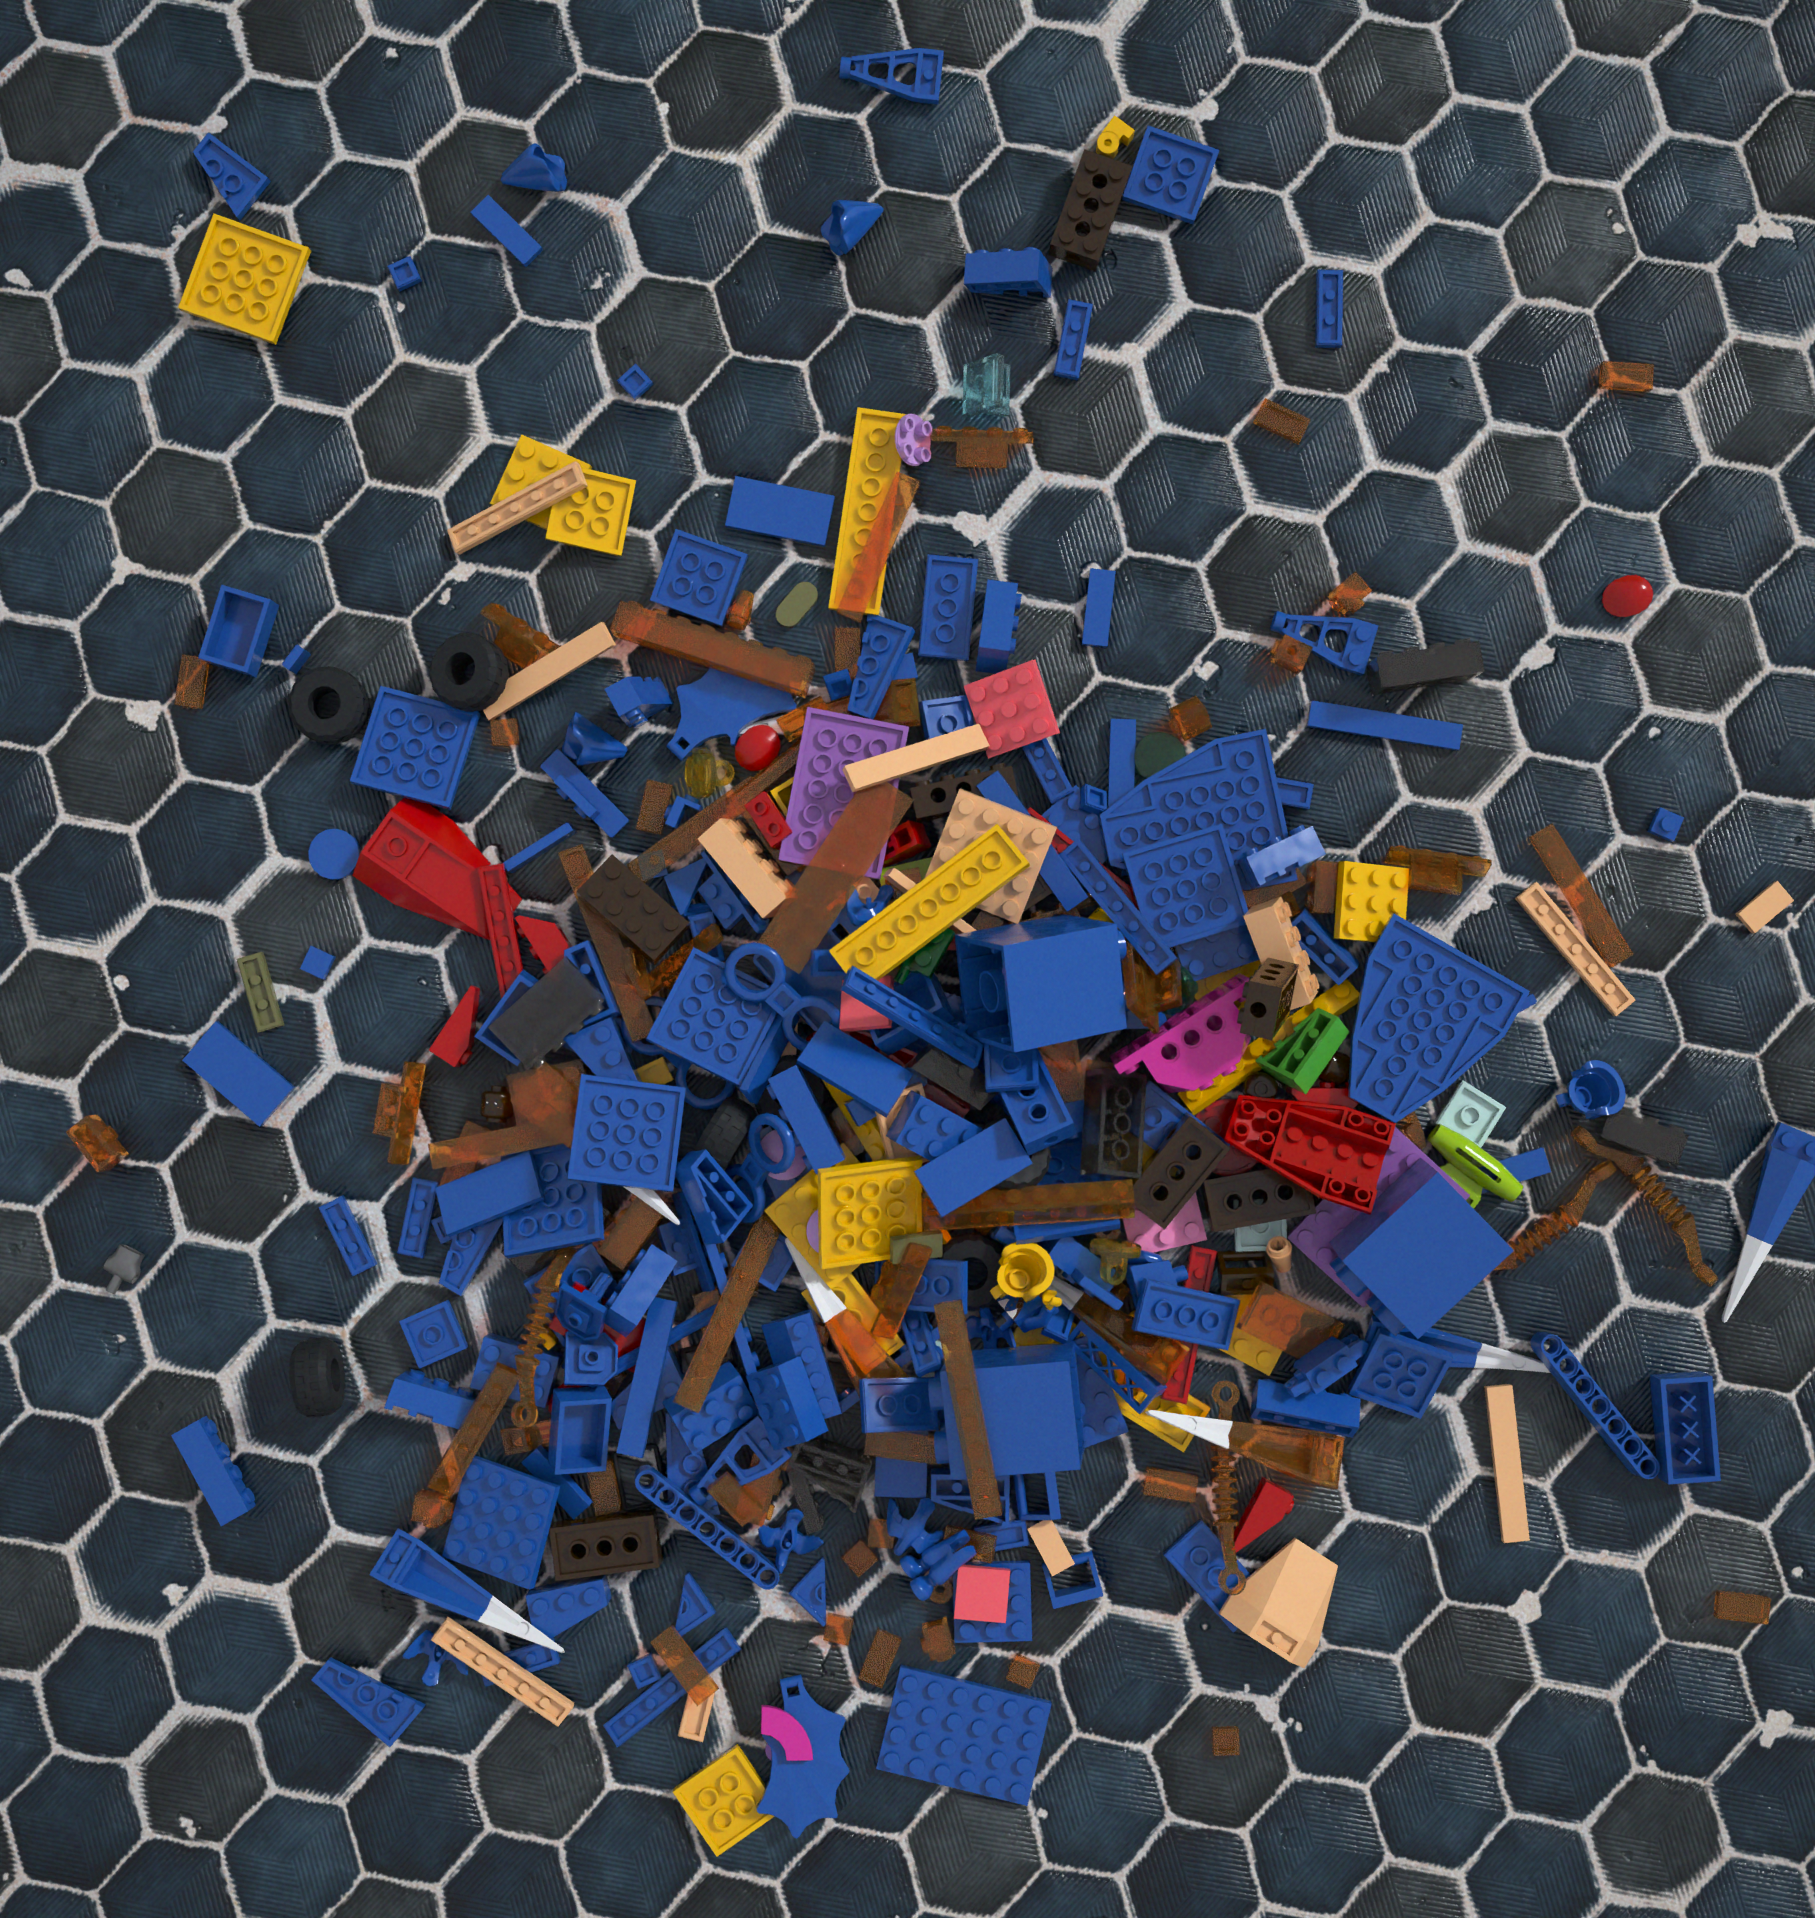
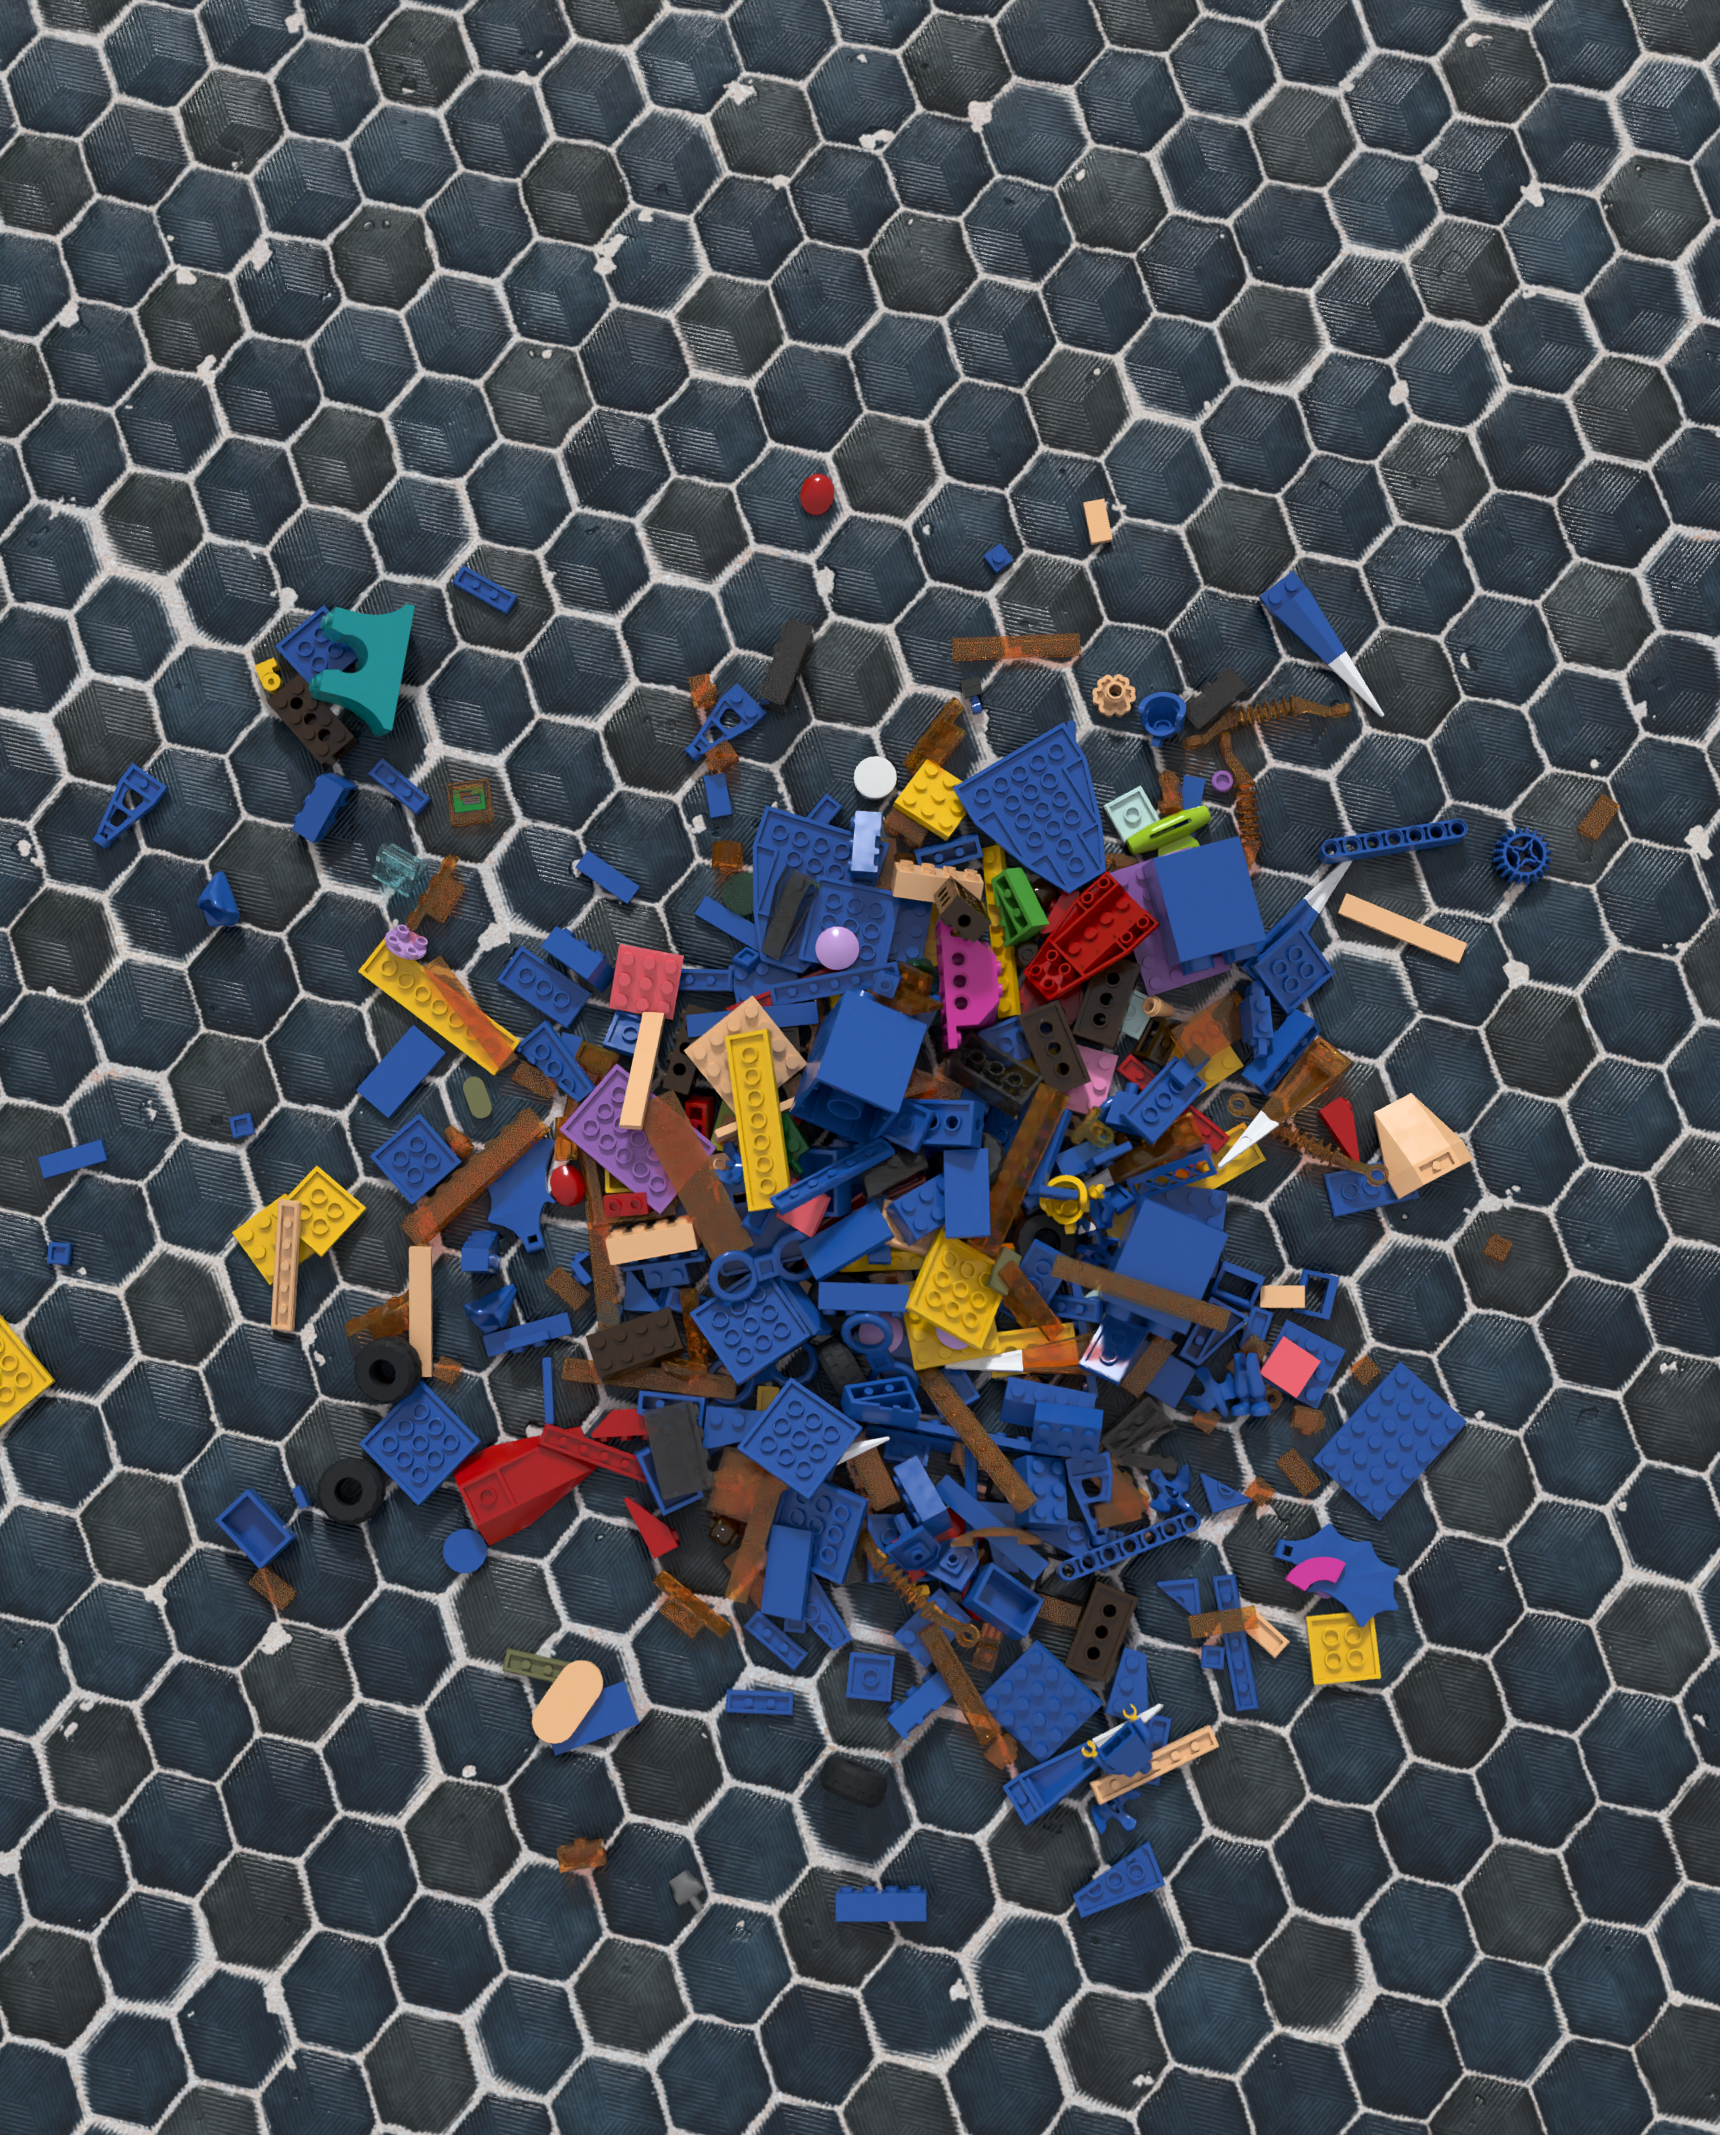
camera: 60 degrees left, 5 degrees down
(240, 1043) = (567, 1701): none -> light nougat tile
(317, 962) = (539, 1609): blue tile -> none
(497, 1639) = (1125, 1750): none -> blue torso
(536, 171) = (42, 1112): blue hat -> none
(570, 1495) = (1051, 1638): blue tile -> none
(654, 1420) = (1024, 1537): none -> clear orange slope
(702, 772) = (563, 1236): clear yellow tile -> none
(838, 684) = (555, 1099): blue tile -> none
(860, 1558) = (1215, 1445): clear orange tile -> none
(1024, 1255) = (1052, 1192): none -> blue tile
(1097, 421) = (470, 802): none -> clear orange tile
(1147, 961) = (887, 983): none -> blue bracket
(1156, 887) = (837, 948): none -> lavender dish
(1170, 1485) = (1285, 1183): clear orange tile -> none
(1175, 812) = (789, 906): none -> clear smoke wedge
(1206, 234) = (381, 654): none -> teal piece
(1226, 1319) = (1183, 1073): none -> blue tile
(1247, 673) = (717, 795): none -> blue tile
(1281, 421) = (547, 669): clear orange tile -> none
(1358, 826) = (875, 778): none -> white tile
(1384, 725) = (812, 718): blue tile -> none
(1509, 874) = (972, 689): none -> pearl dark grey piece
(1516, 1145) = (1172, 793): none -> clear orange leg
(1557, 1190) = (1222, 781): none -> medium lavender tile
(1575, 949) = (1052, 672): light nougat tile -> none
(1575, 1027) = (1113, 705): none -> light nougat plant
(1626, 376) = (657, 407): clear orange tile -> none
(1659, 1570) = (1531, 860): none -> blue gear
(1685, 1427) = (1443, 786): blue brick -> none

